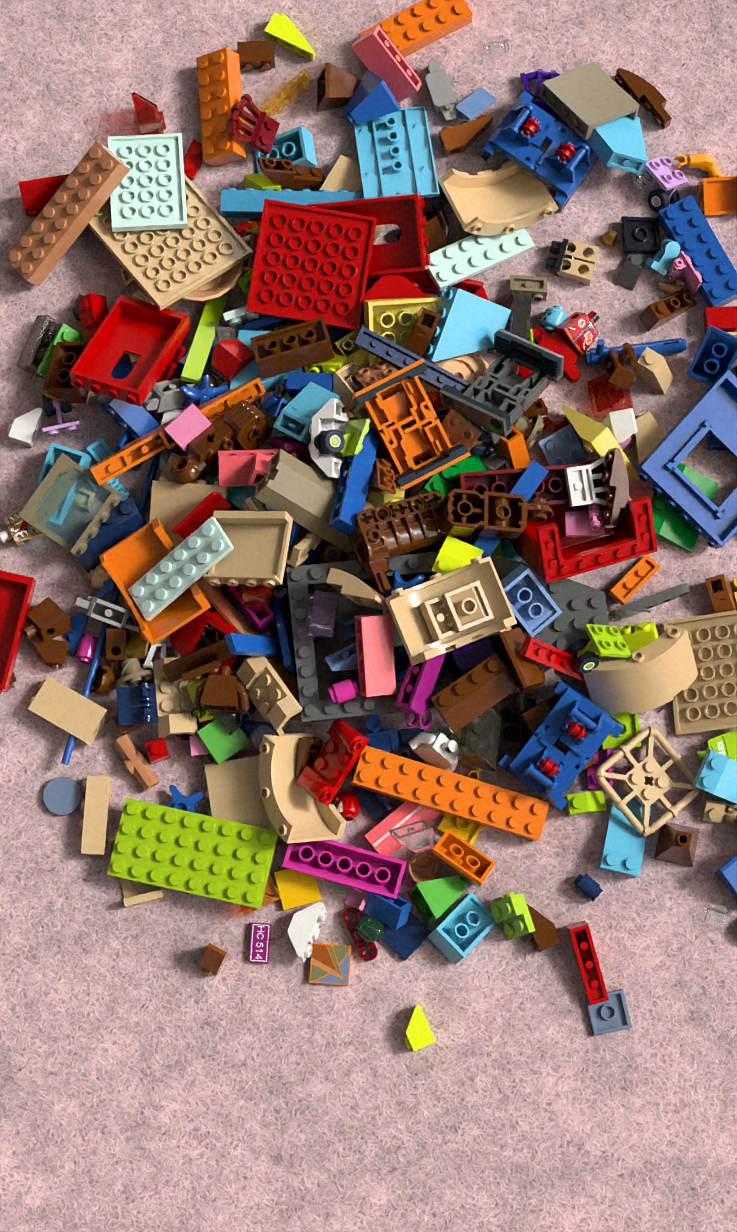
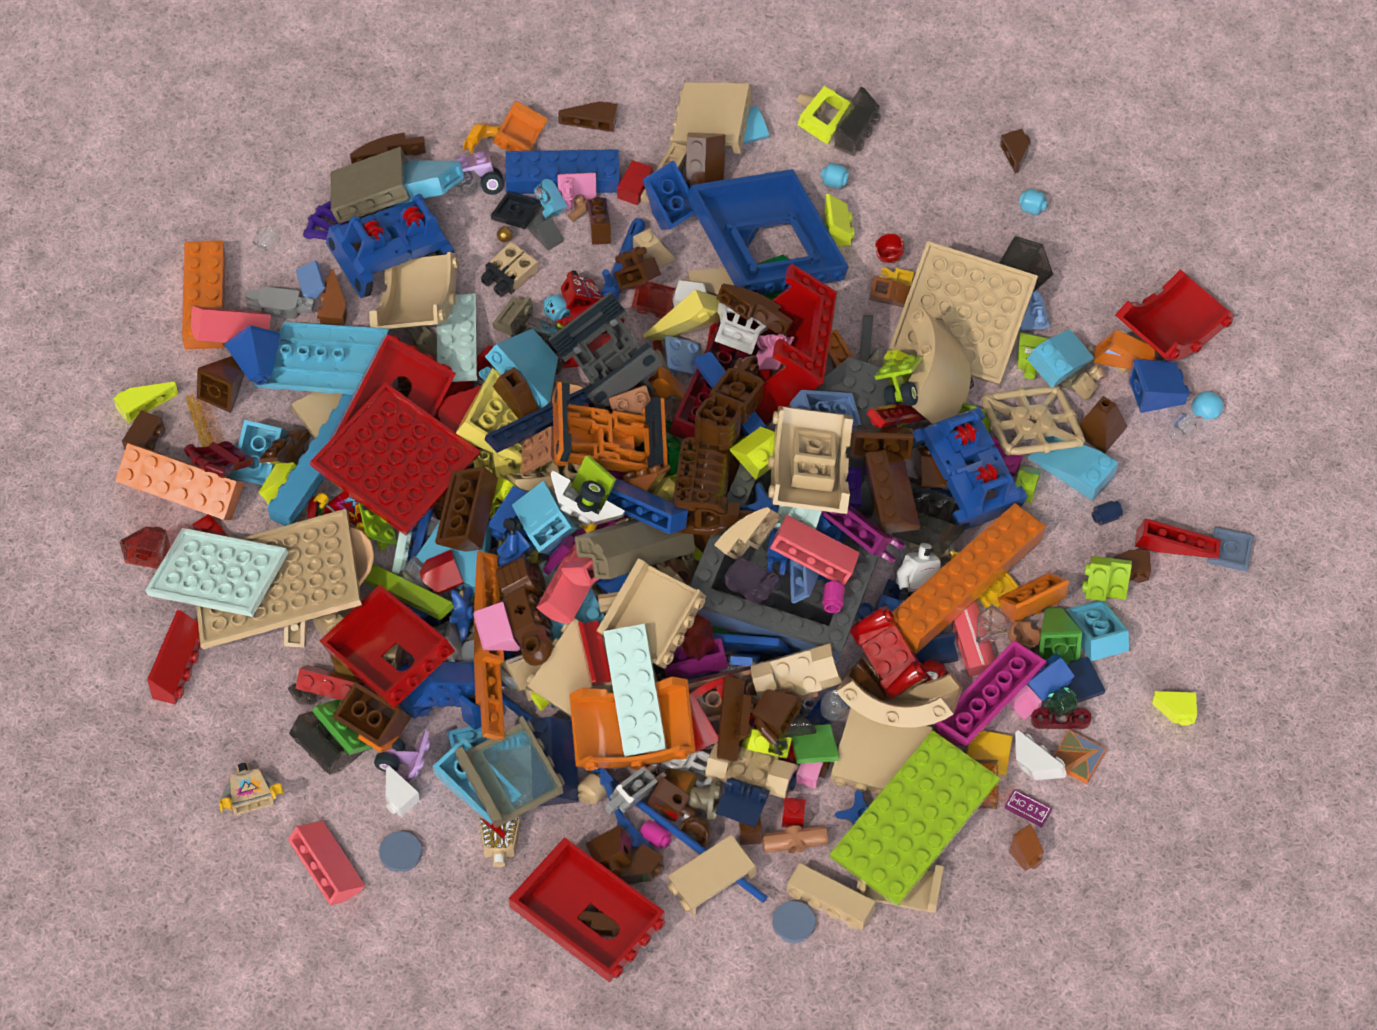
camera: 65 degrees left, 20 degrees down
(67, 214) = (208, 649): nougat brick -> none

